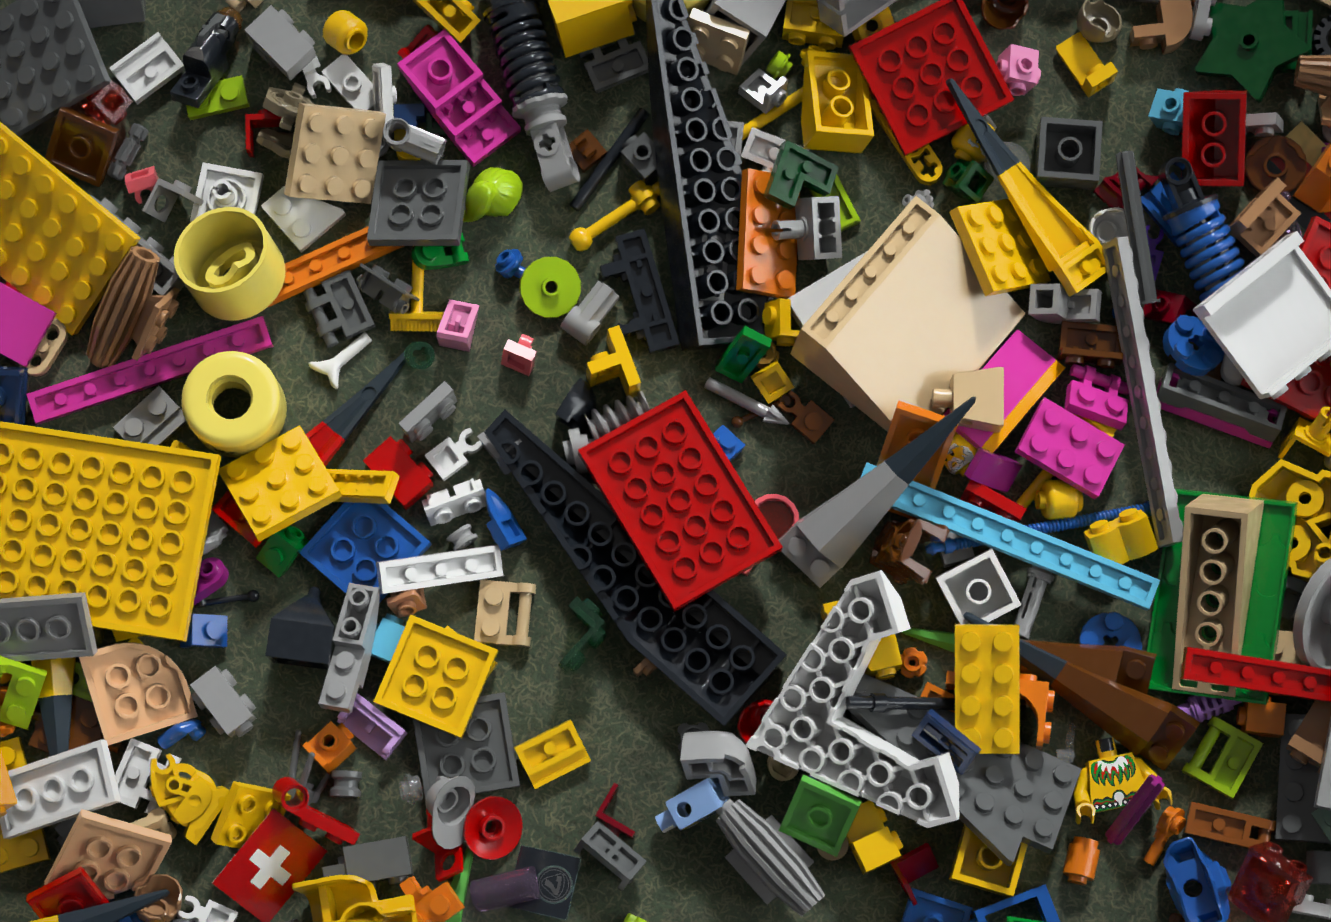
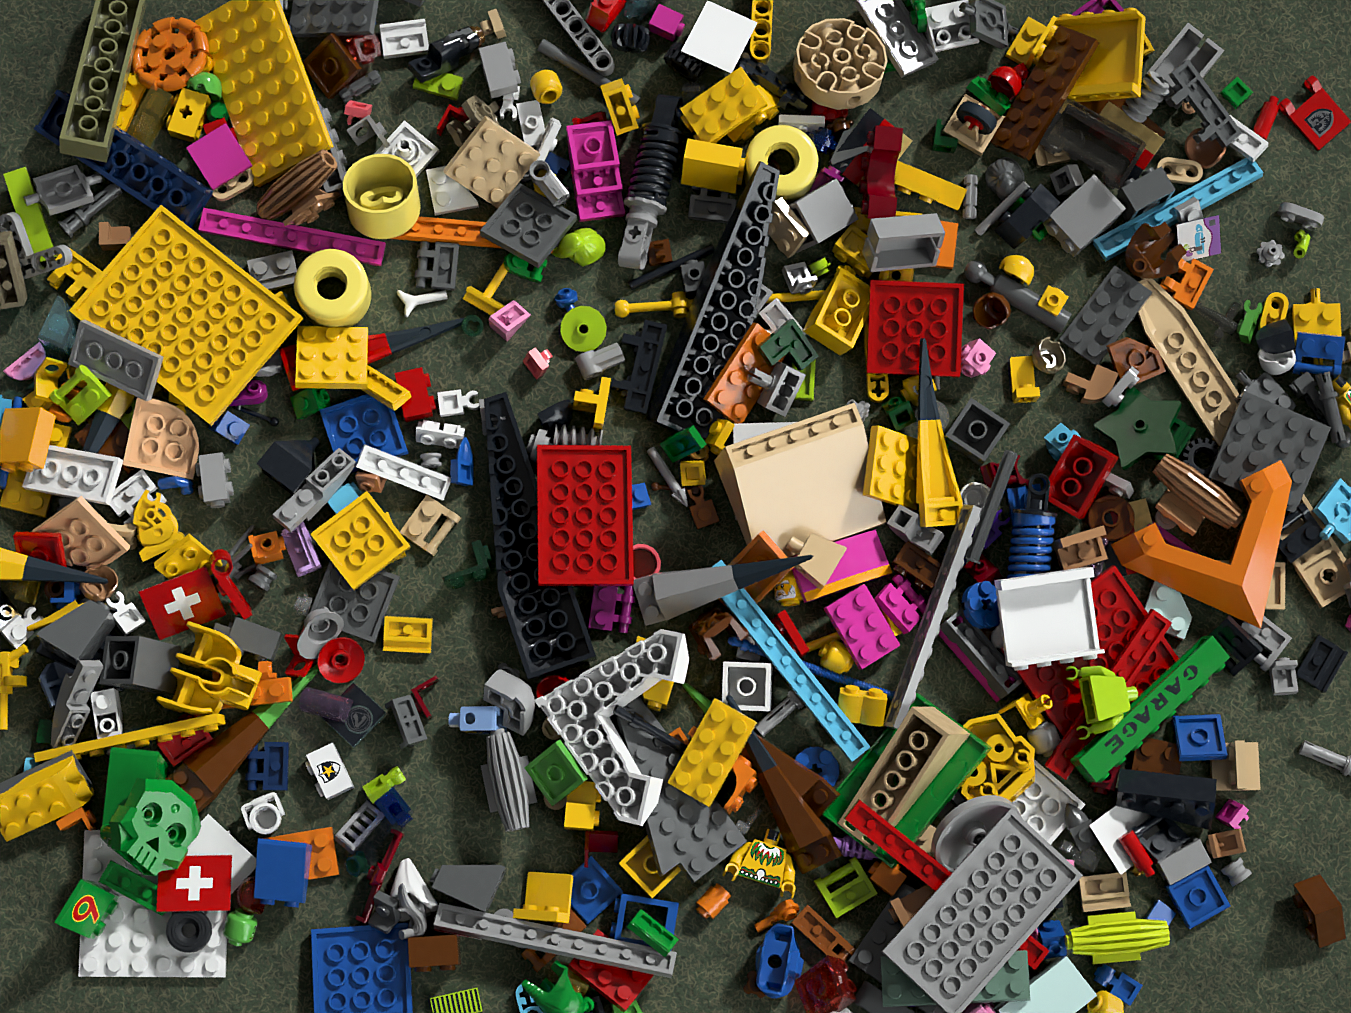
camera: 20 degrees right, 0 degrees up
(396, 293) = (480, 276): dark grey hinge -> none
(435, 406) = (463, 364): light grey plate -> none
(760, 595) = (603, 608): none -> magenta plate
(920, 661) = (677, 715): orange plate -> none
(948, 738) = (667, 770): dark blue tile -> none
(993, 470) = (803, 612): magenta slope -> none
(1134, 809) = (765, 887): magenta axle -> none

